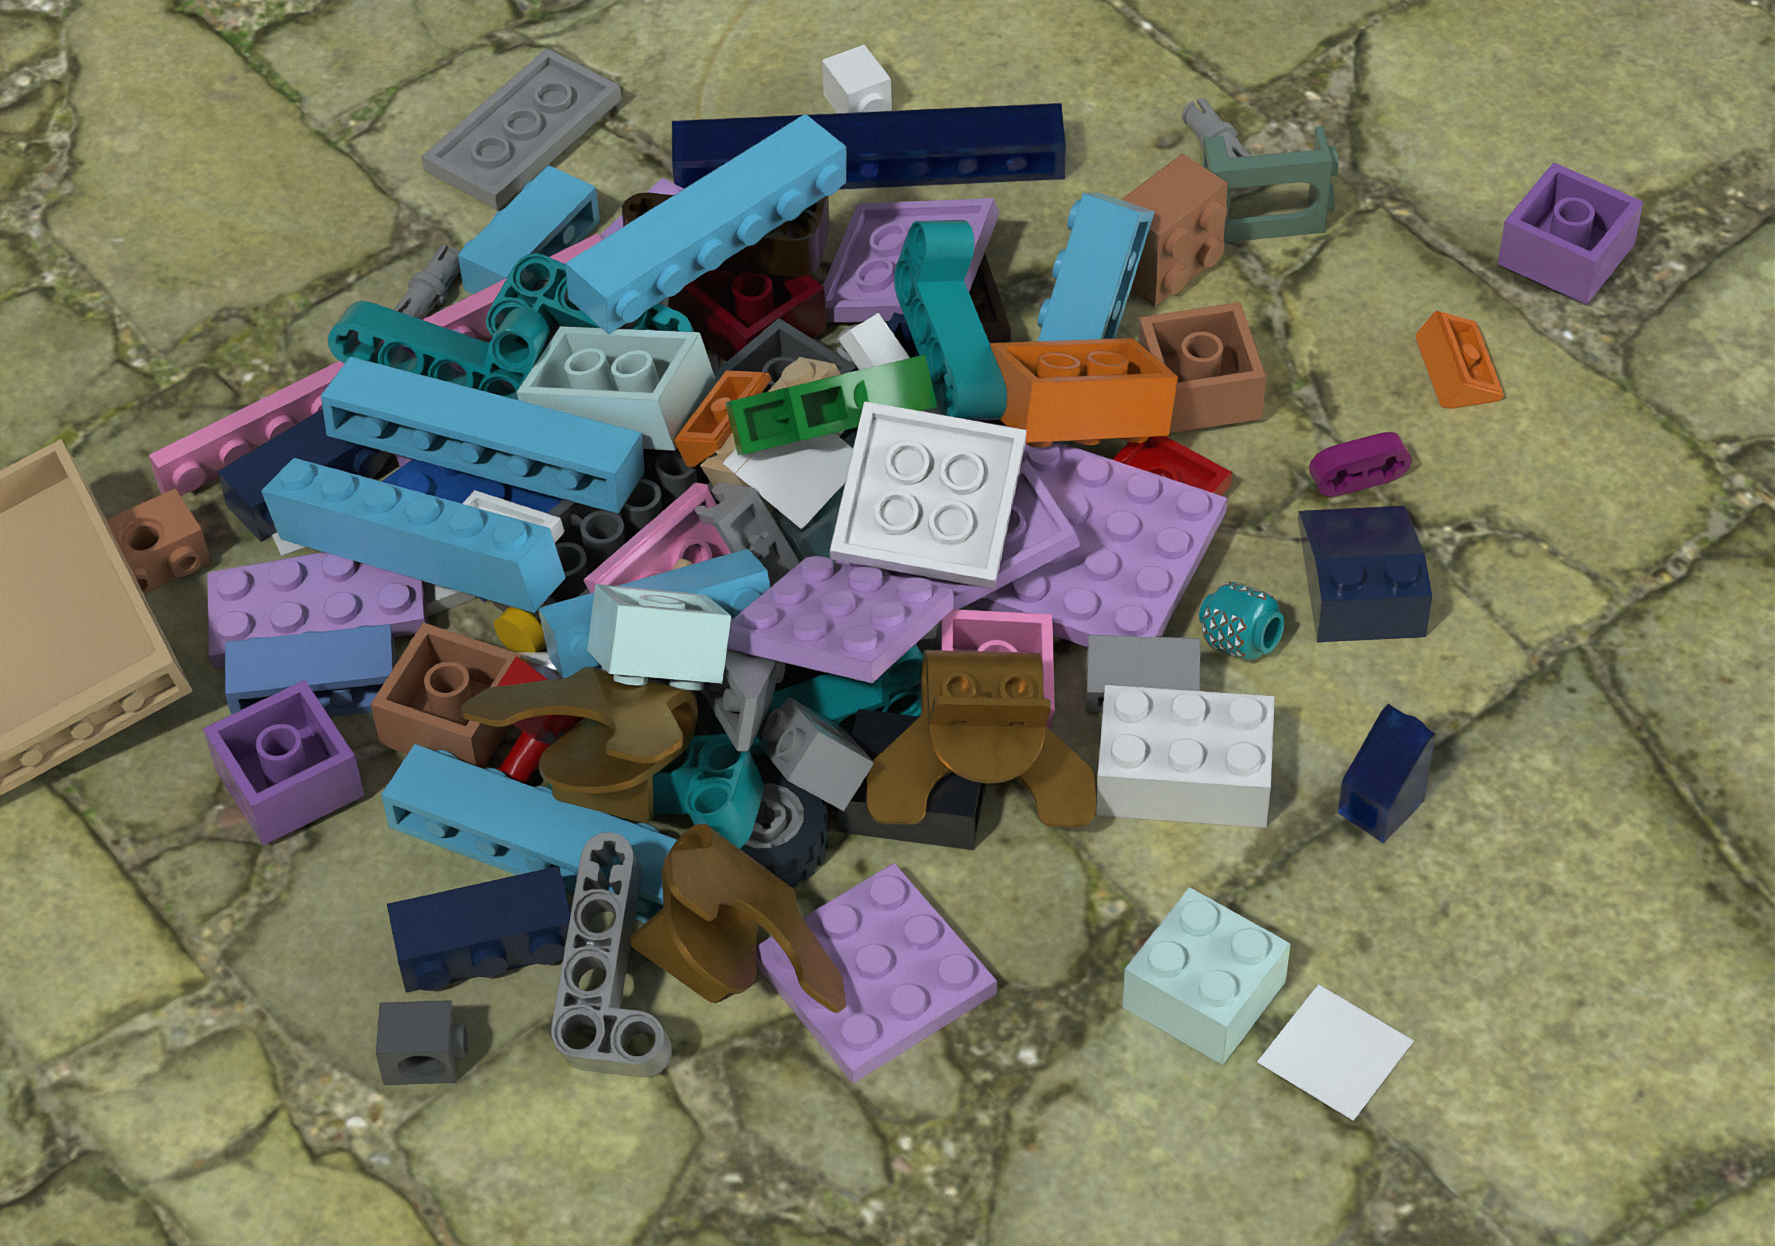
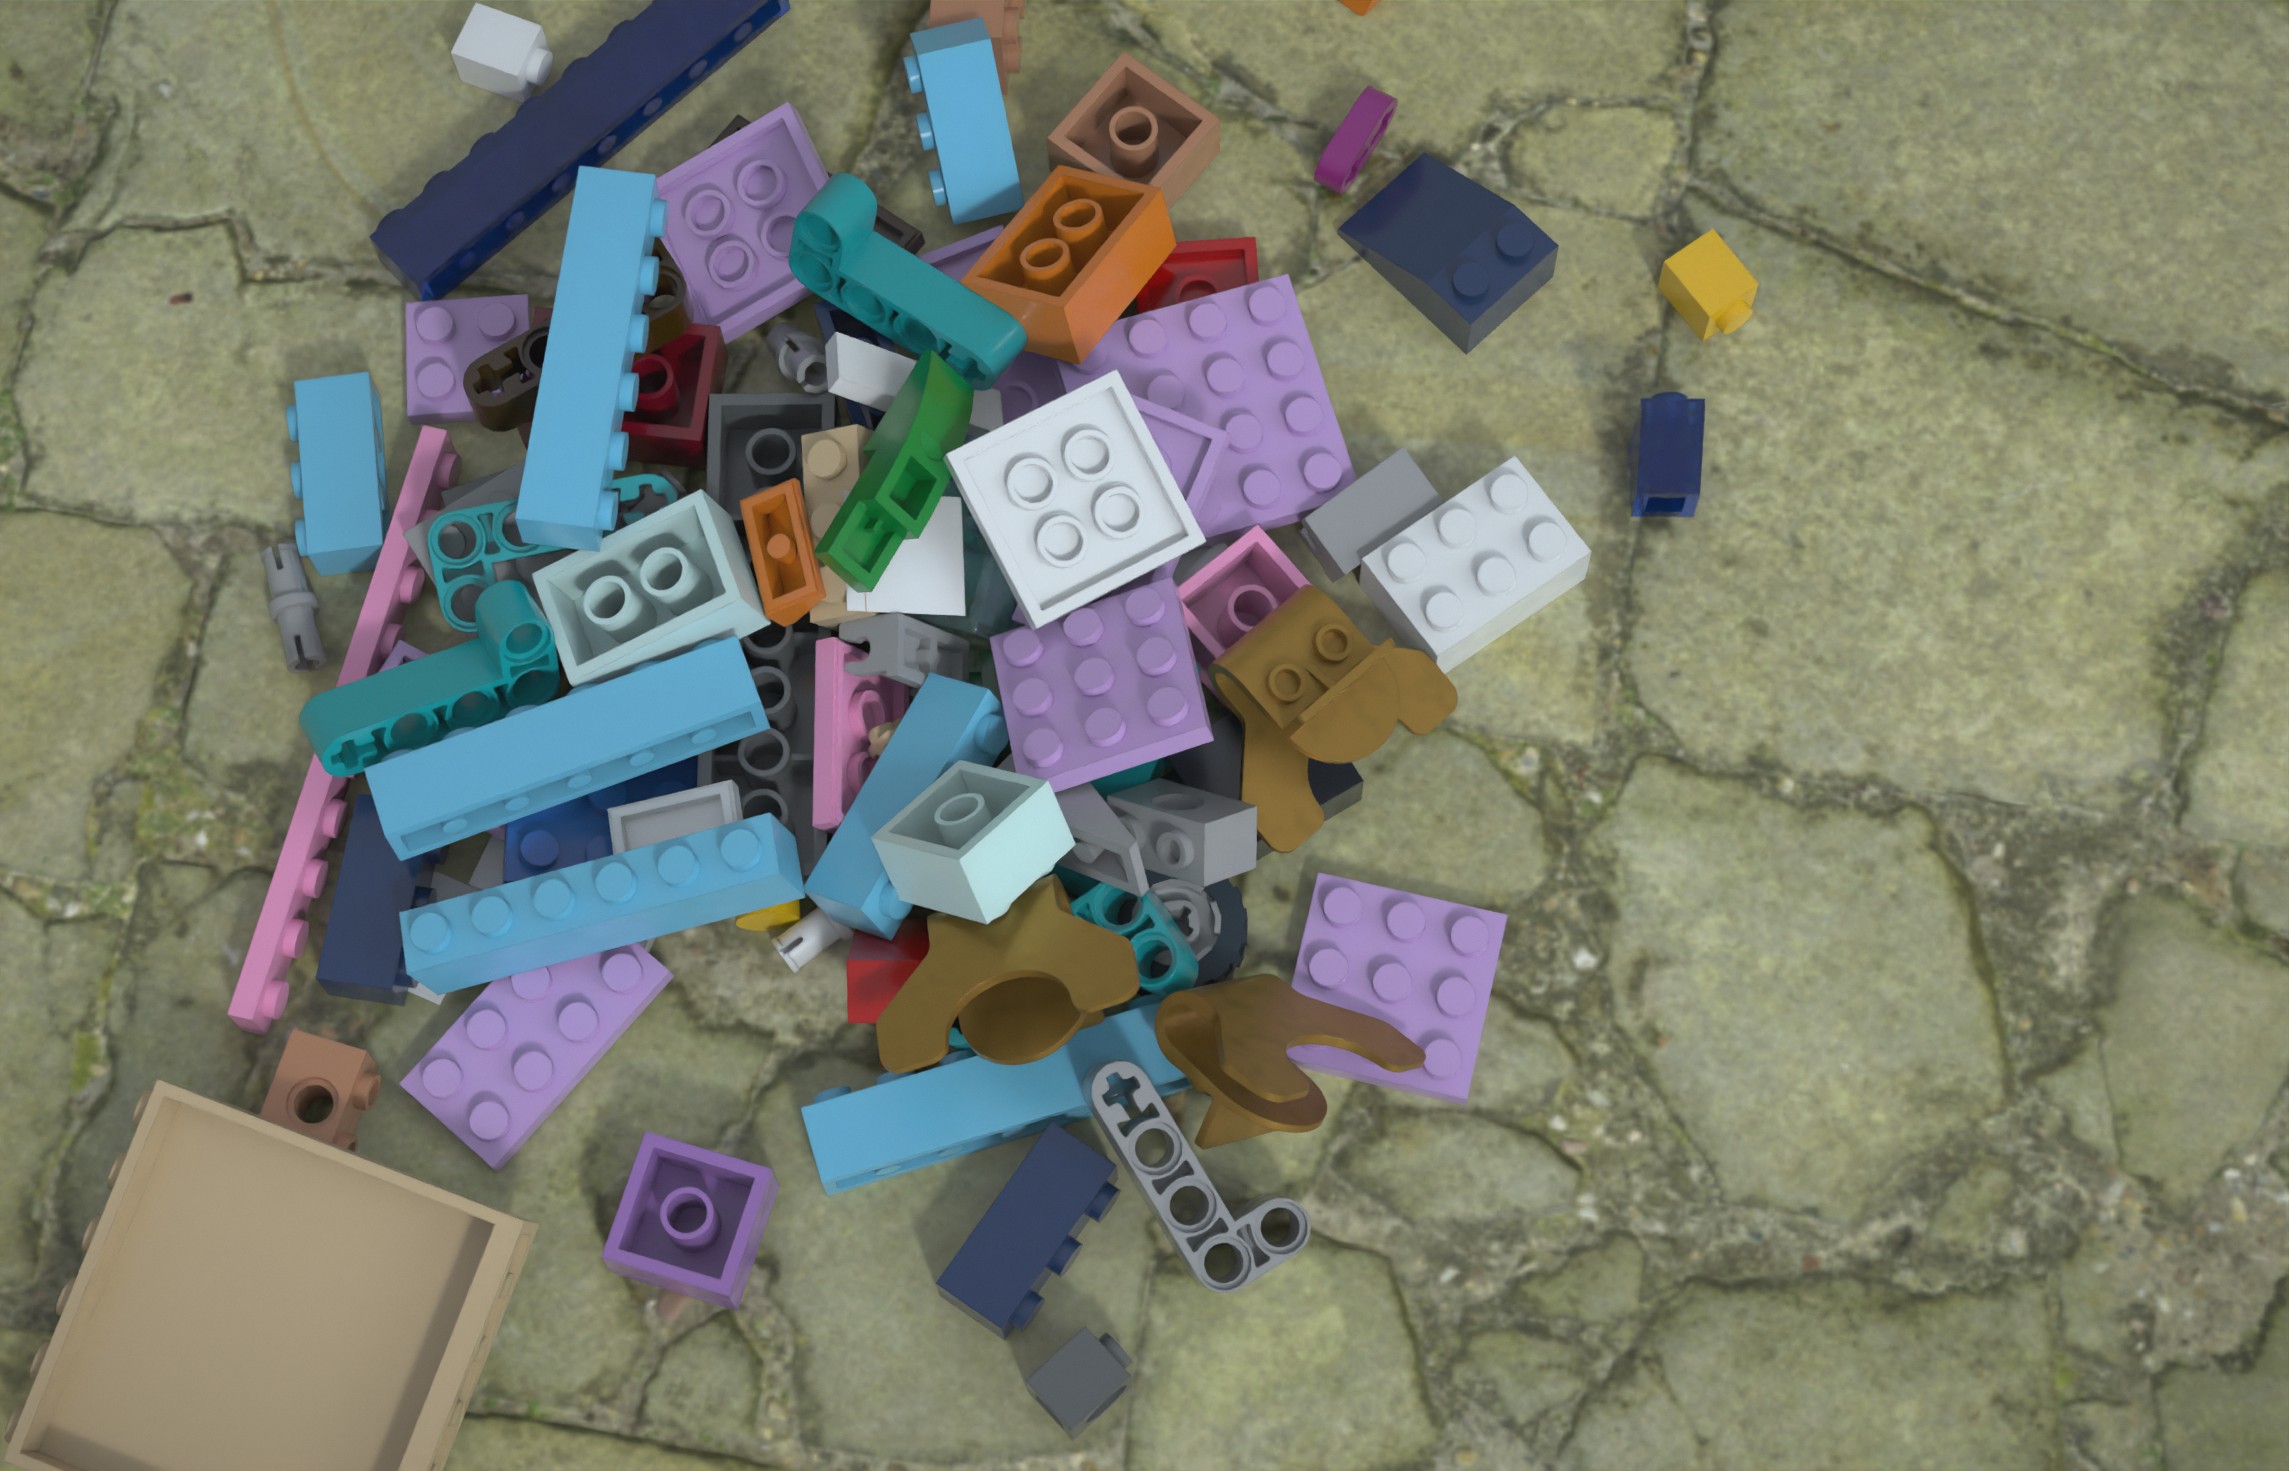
camera: 40 degrees left, 20 degrees up
(339, 666) = (611, 1105): medium blue brick -> none
(426, 693) = (780, 1033): nougat brick -> none
(521, 128) = (202, 349): light grey plate -> none
(1205, 975) = (1679, 771): light aqua brick -> none
(1241, 621) = (1400, 391): teal head -> none
(1335, 1052) = (1825, 750): white sticker -> none
(1528, 703) = (1708, 286): none -> yellow brick

